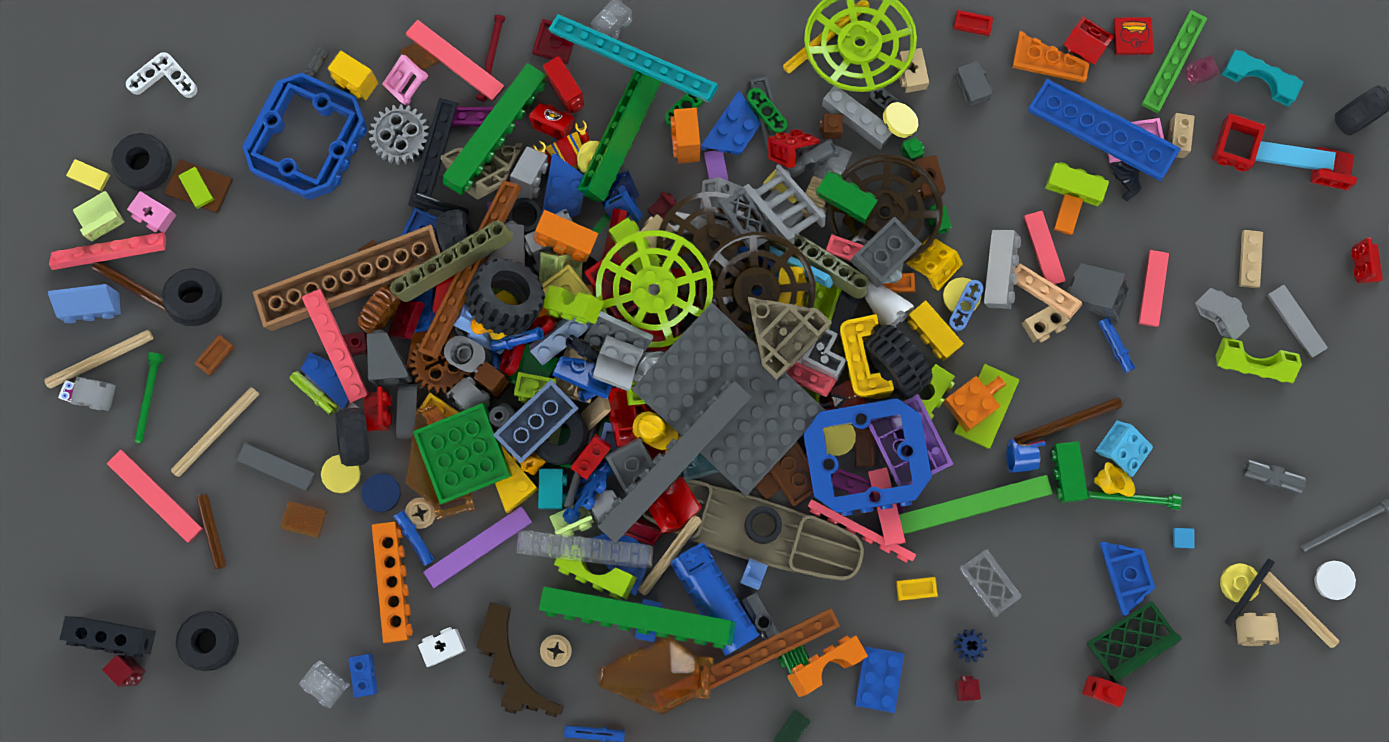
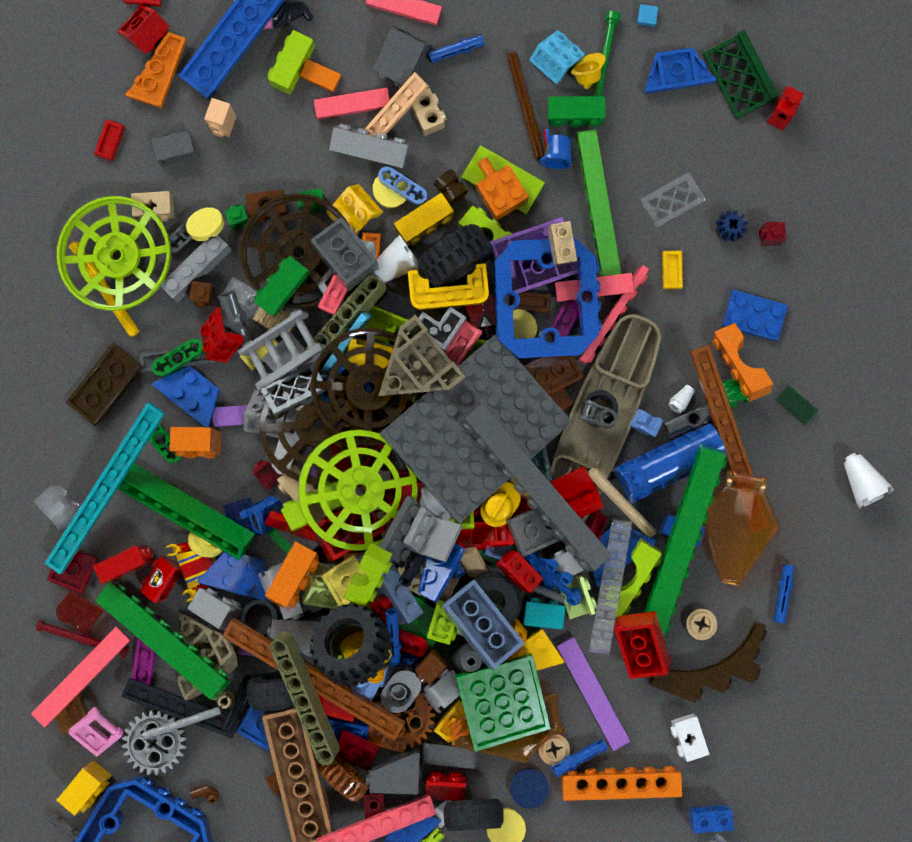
camera: 90 degrees left, 5 degrees up
(357, 187) = (207, 791): none -> reddish brown arm
(419, 156) = (181, 723): none -> light grey bar
(441, 194) = (221, 701): none -> tan pin
(514, 50) = (78, 612): none -> clear red bracket
(529, 586) = (642, 645): none -> red brick
(733, 47) = (104, 384): none -> dark brown tile
(756, 518) = (597, 414): none -> dark grey piece
(782, 609) = (681, 400): none -> white cone
(923, 461) = (562, 243): none -> tan brick
(974, 351) = (451, 187): none -> dark brown wheel
(1008, 122) = (220, 118): none -> light nougat brick

